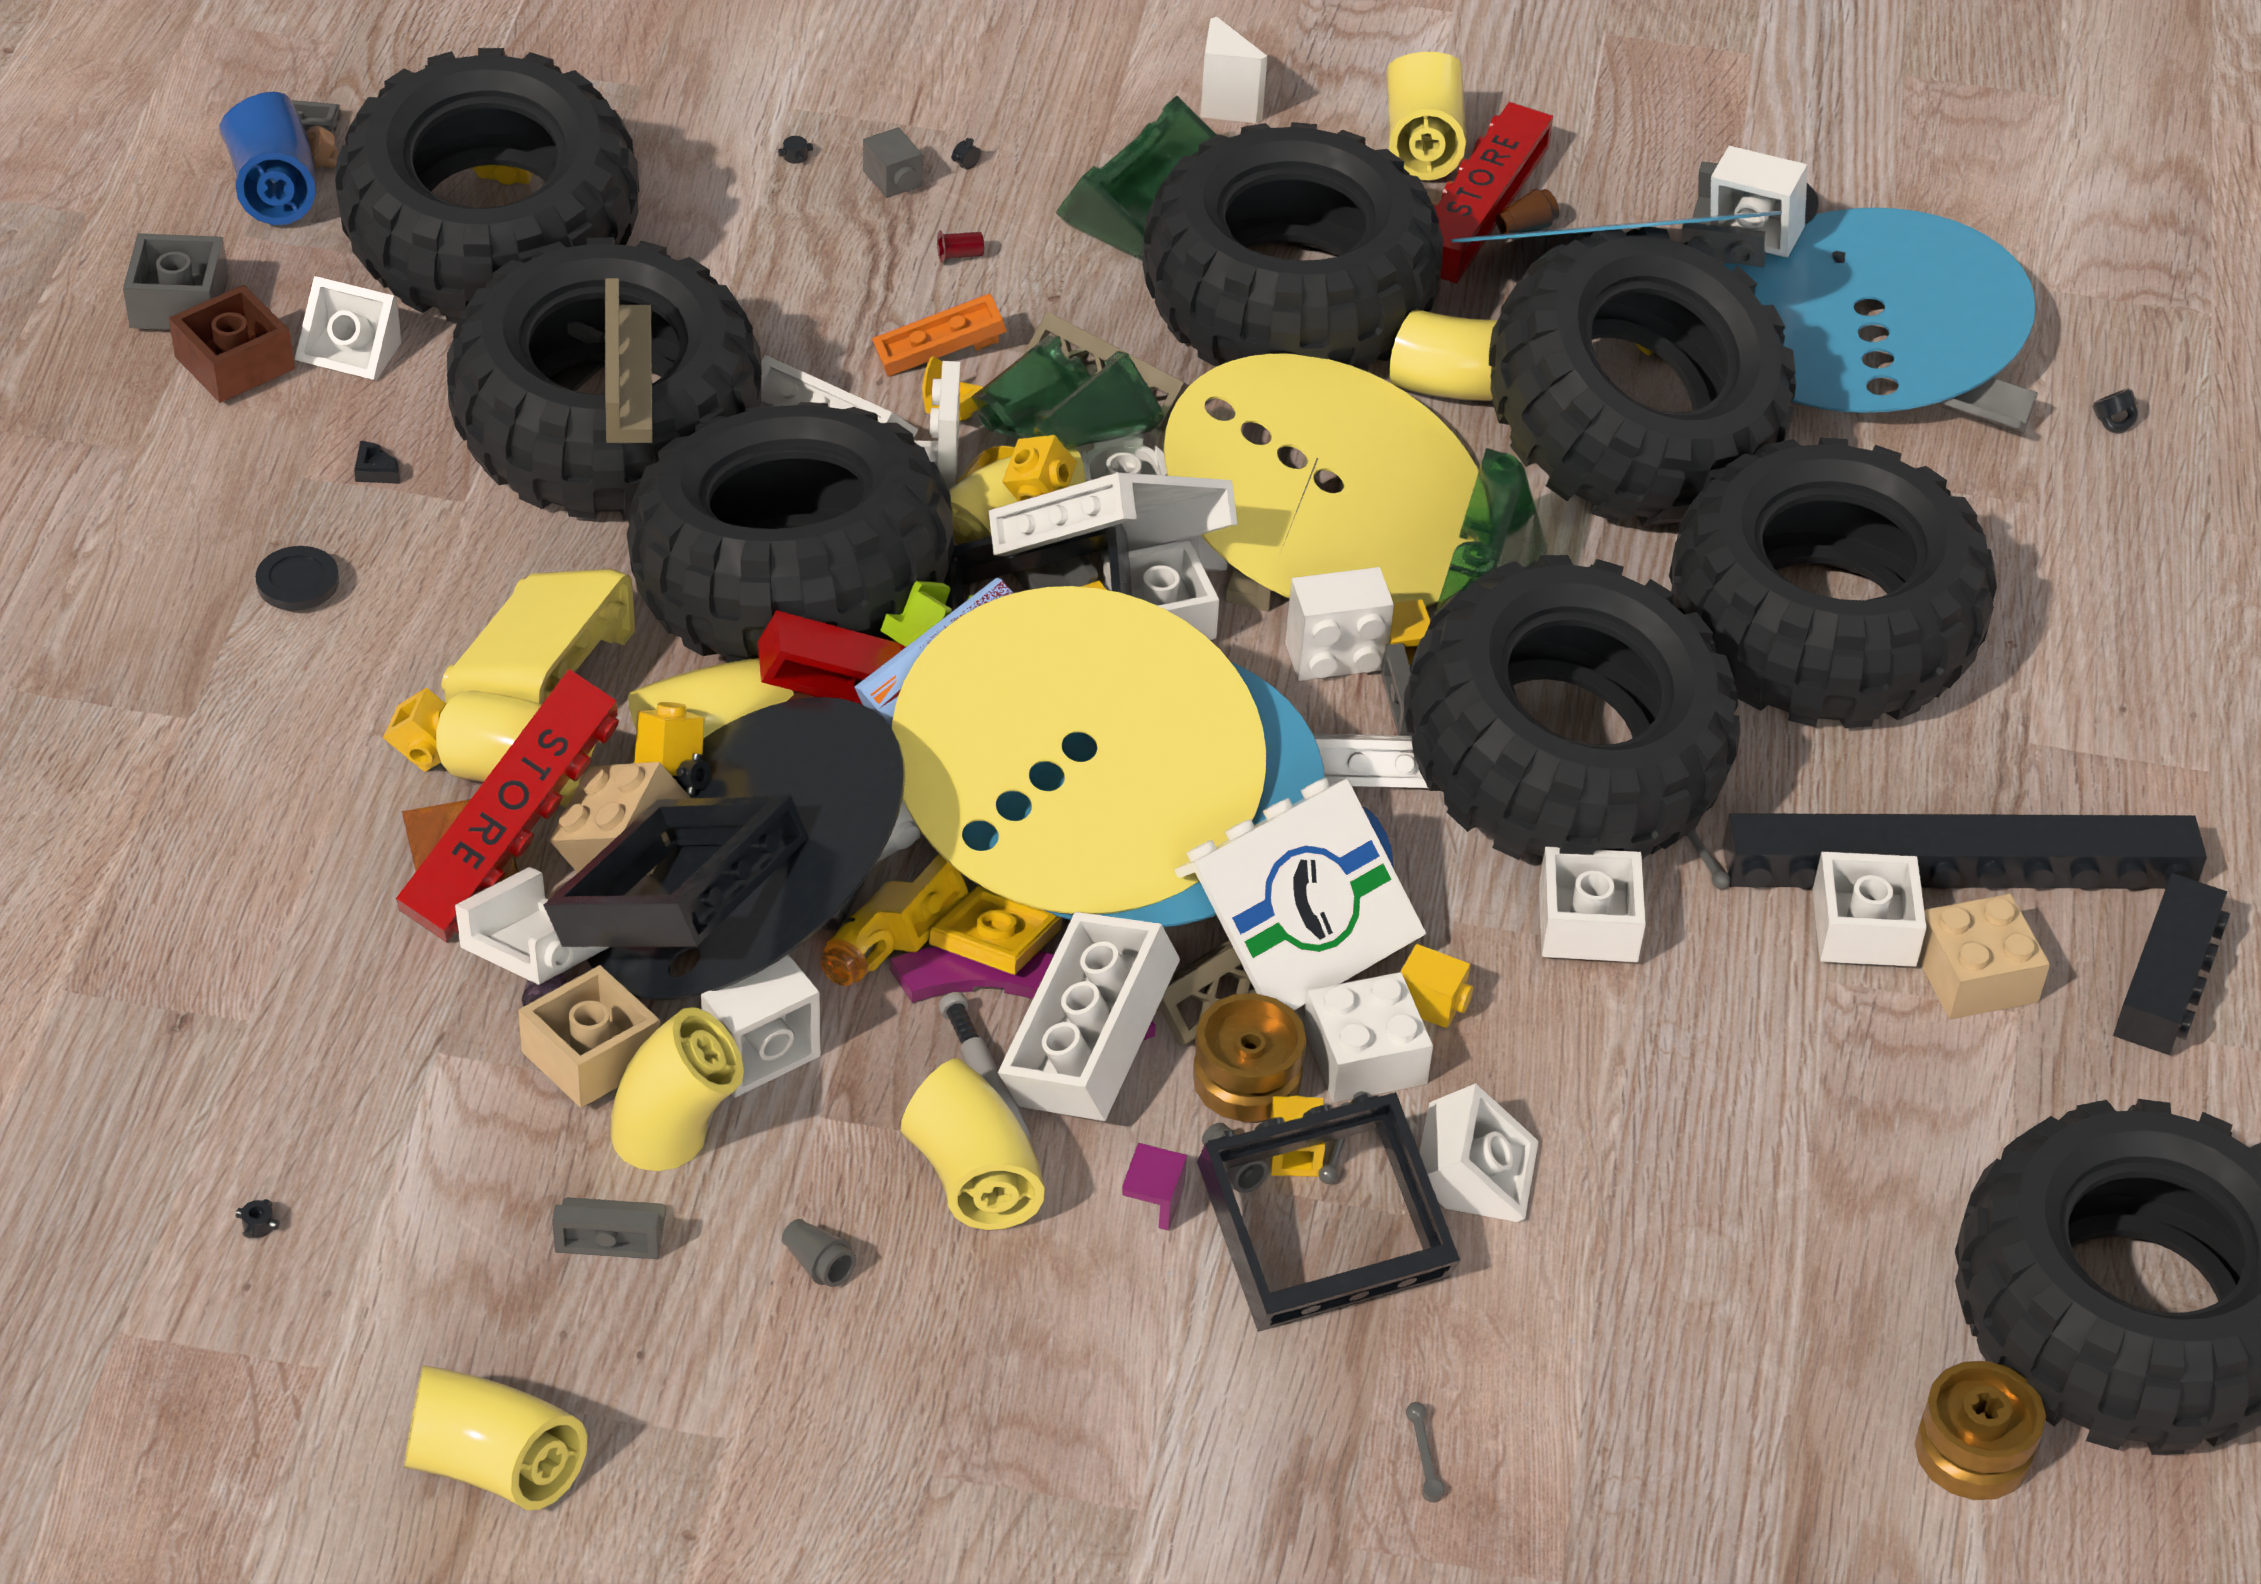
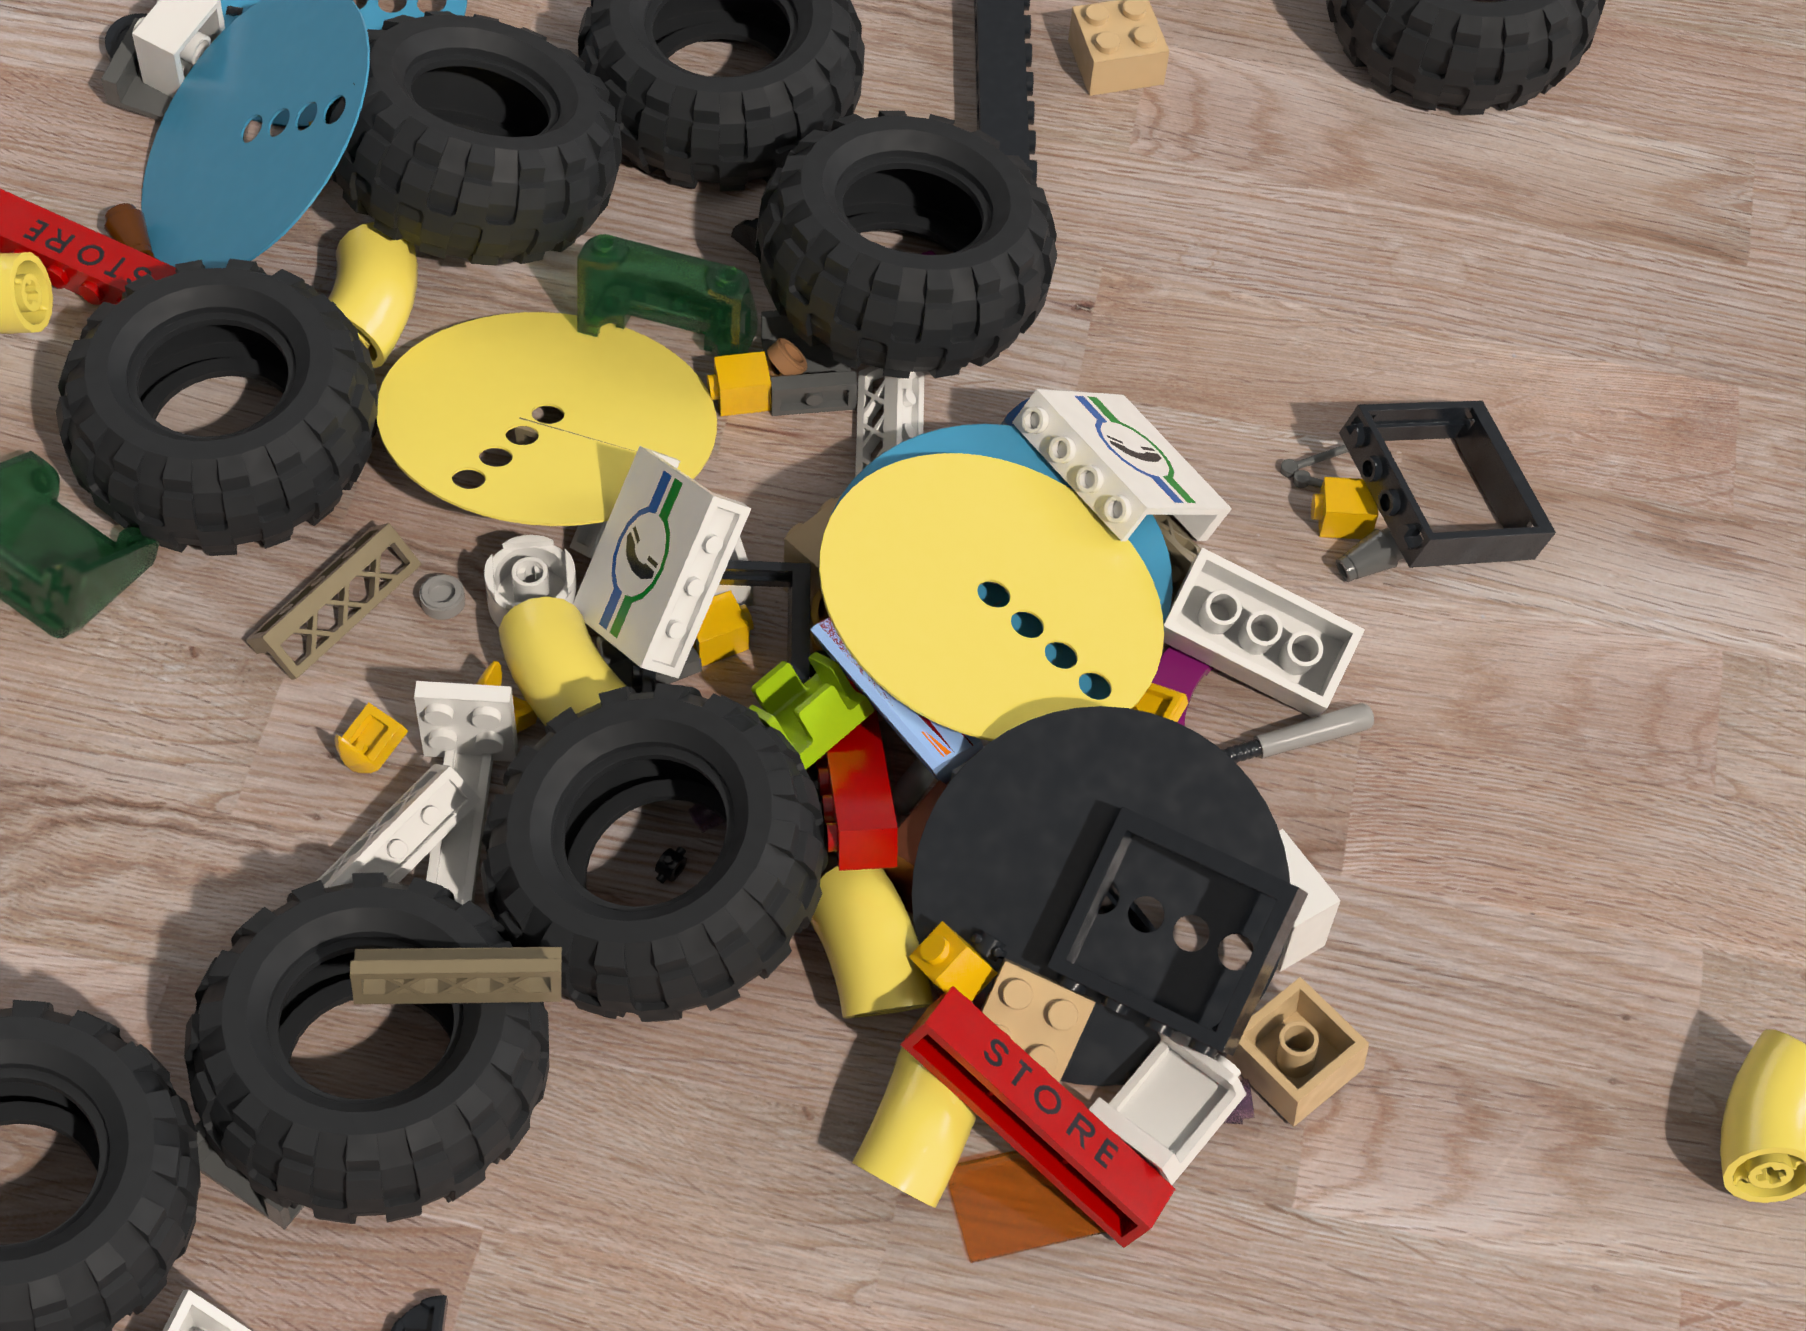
camera: 90 degrees left, 10 degrees up
(414, 728) = (885, 1226): yellow brick -> none
(545, 632) = (761, 1114): light yellow windscreen -> none
(608, 1228) = (1498, 1040): dark grey panel -> none
(674, 1090) = (1383, 965): light yellow brick -> none
(820, 1253) = (1513, 866): dark grey cone -> none
(940, 334) = (269, 747): orange hinge -> none
(959, 245) = (108, 730): dark red piece -> none
(975, 1148) = (1397, 736): light yellow brick -> none
(1038, 467) = (576, 610): yellow brick -> none
(1060, 398) = (435, 614): clear green windscreen -> none
(1157, 1178) = (1413, 604): magenta panel -> none
(1247, 1055) = (1276, 528): pearl gold wheel -> none
(1338, 623) = (748, 421): white brick -> none
(1367, 1036) = (1238, 447): white brick -> none
(1433, 1488) = (1673, 455): dark grey hinge -> none
(1437, 984) = (1172, 401): yellow brick -> none
(1478, 1155) = (1347, 383): white slope -> none
(1592, 905) = (1088, 280): white brick -> none
(1869, 909) = (1078, 102): white brick -> none
(1980, 1430) = (1586, 114): pearl gold wheel -> none

